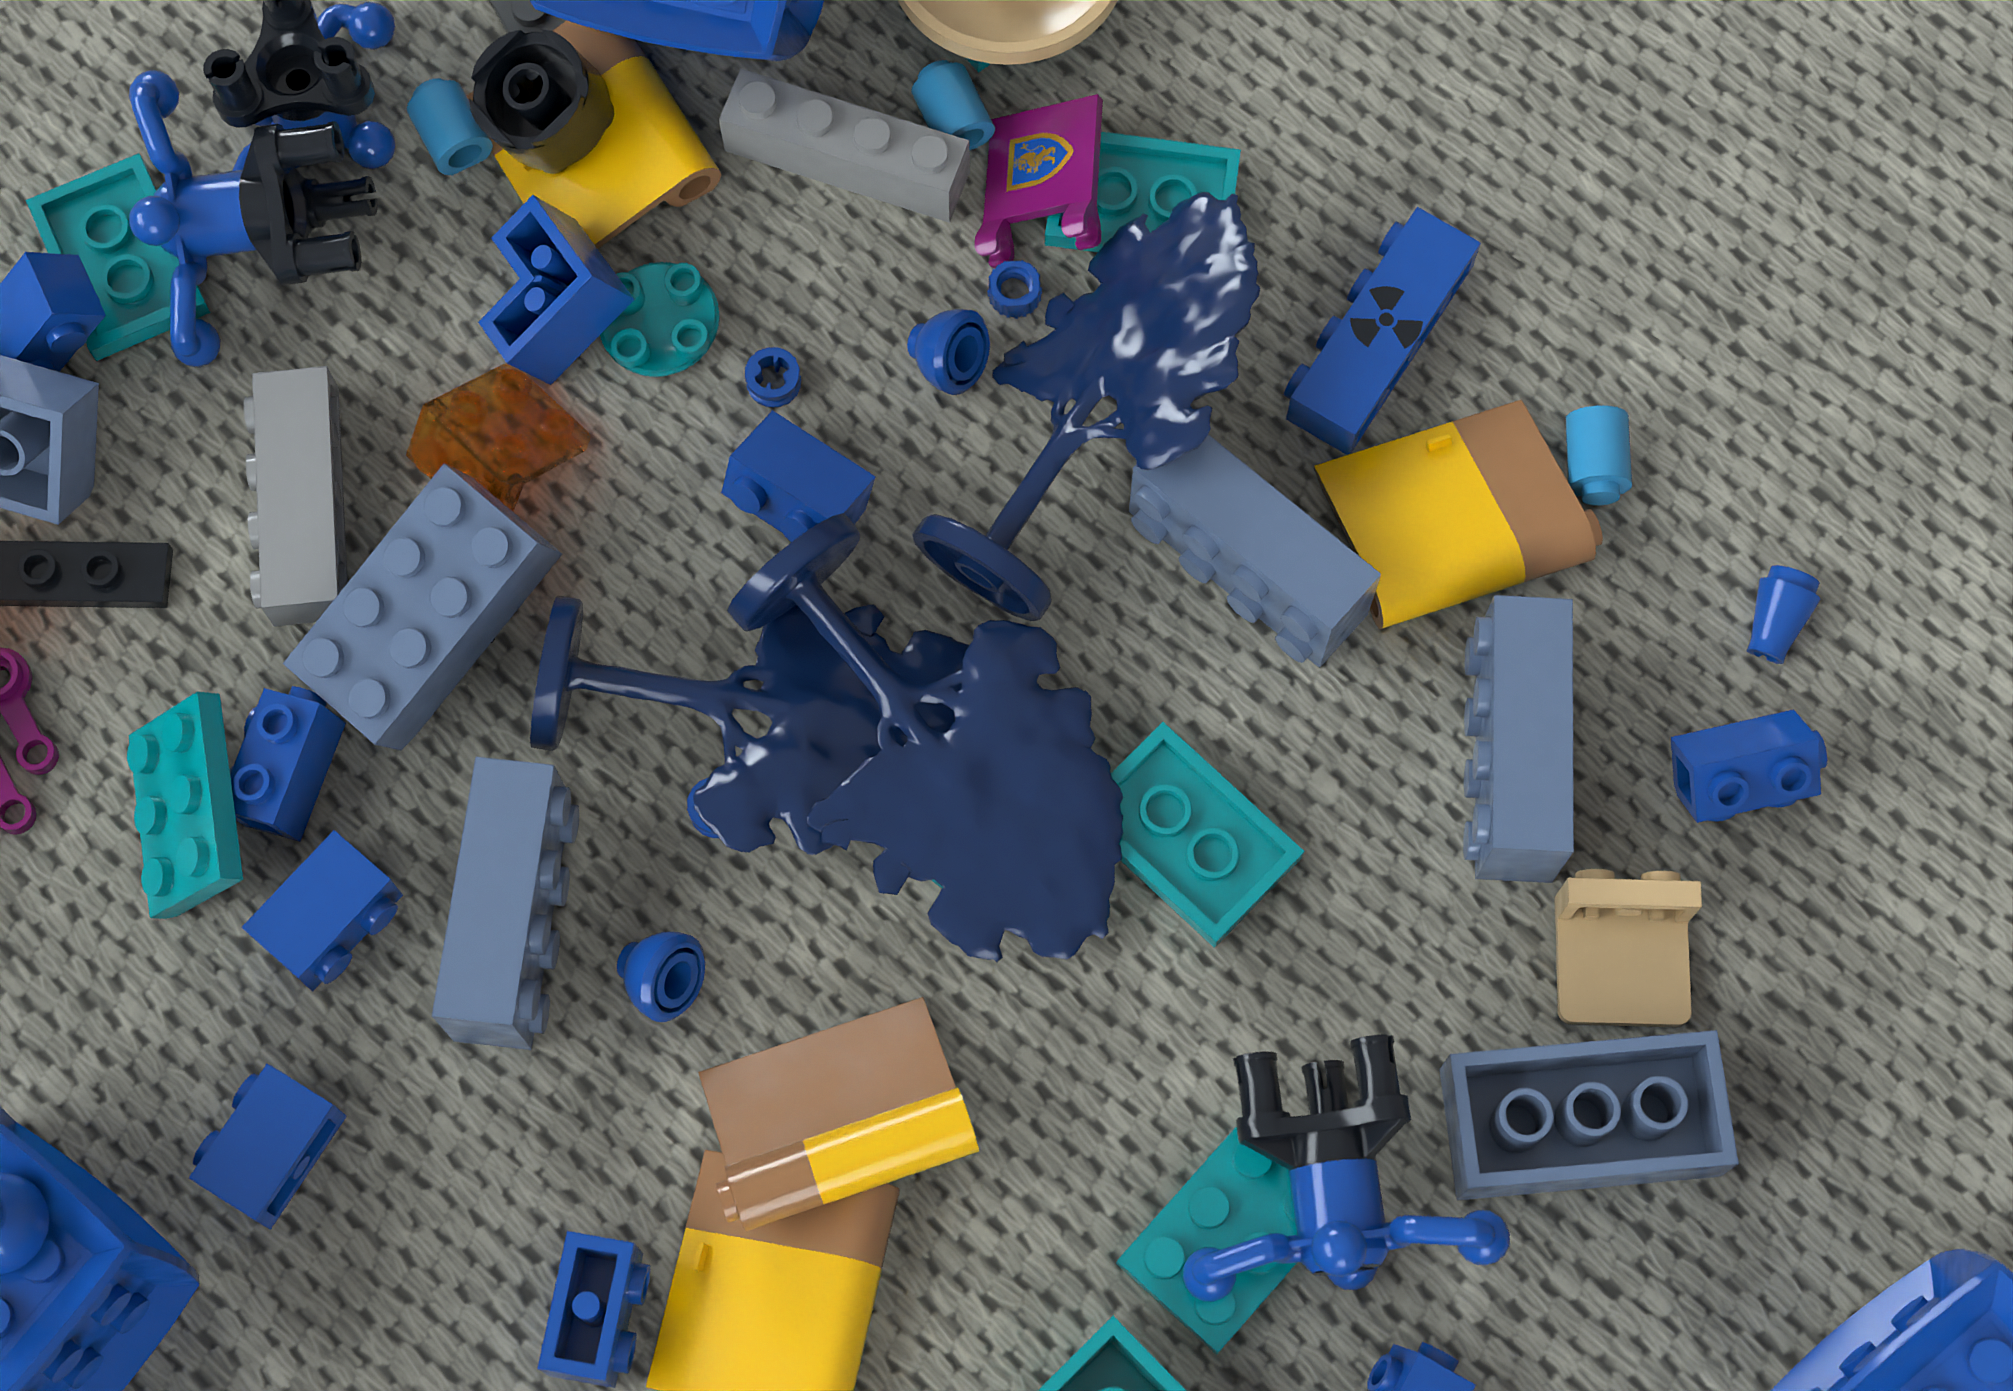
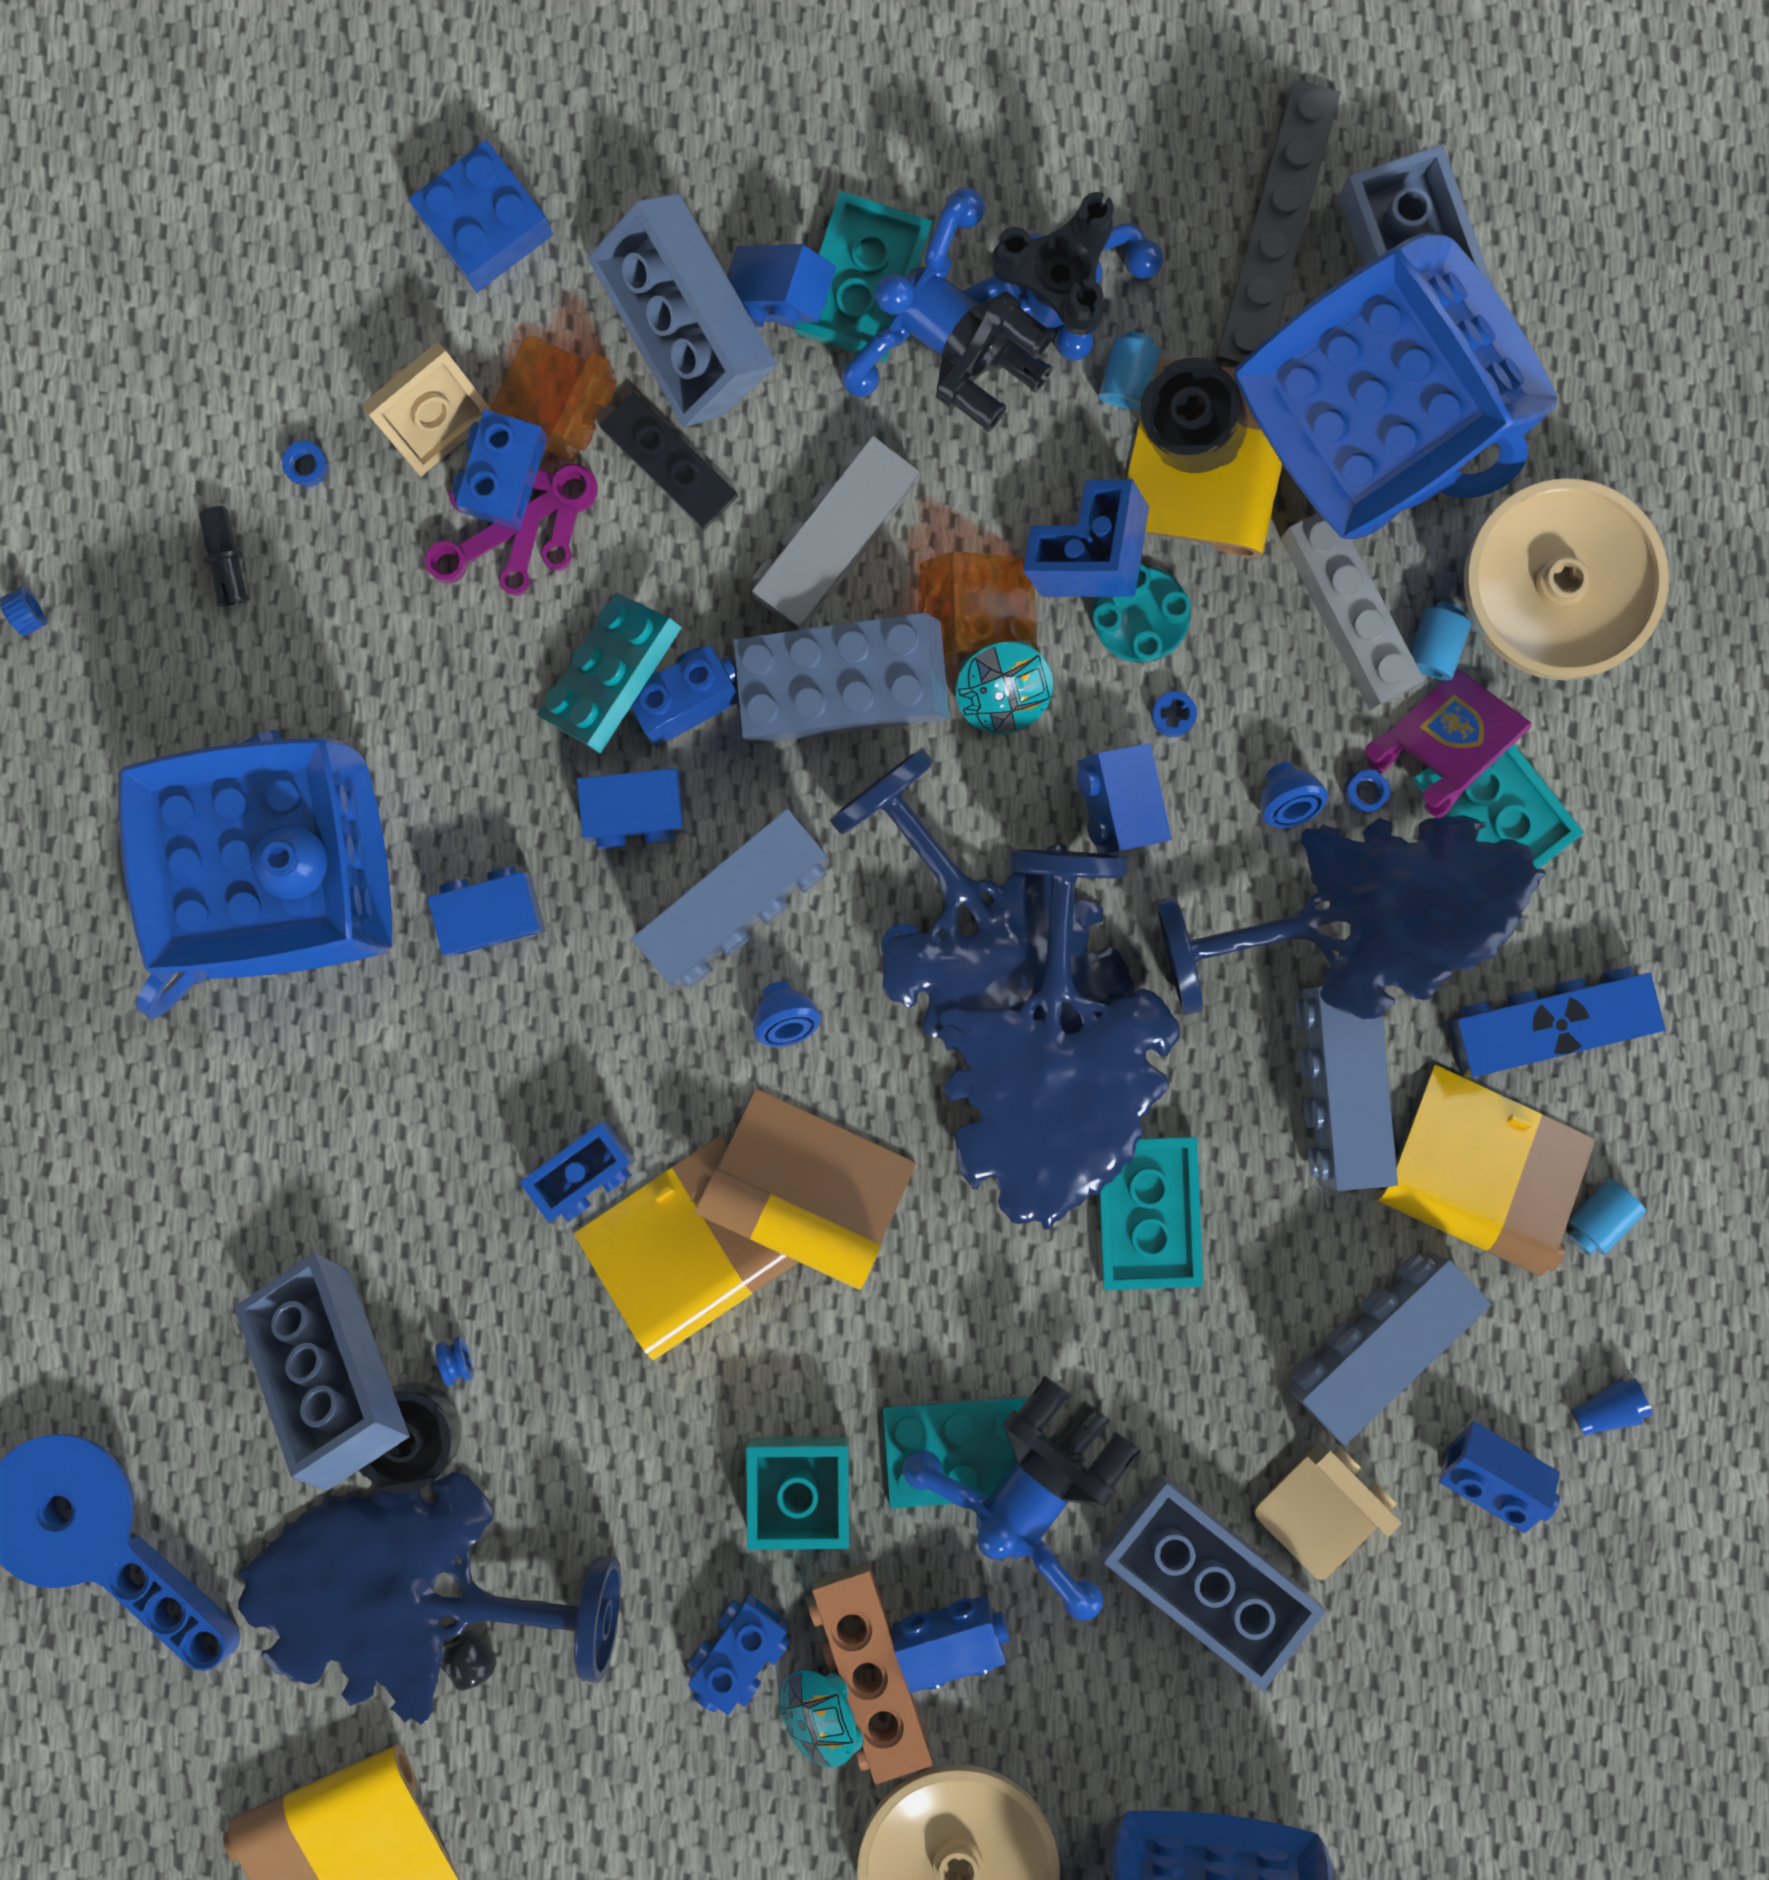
camera: 40 degrees right, 15 degrees up
(589, 487) = (1004, 687): none -> teal dish

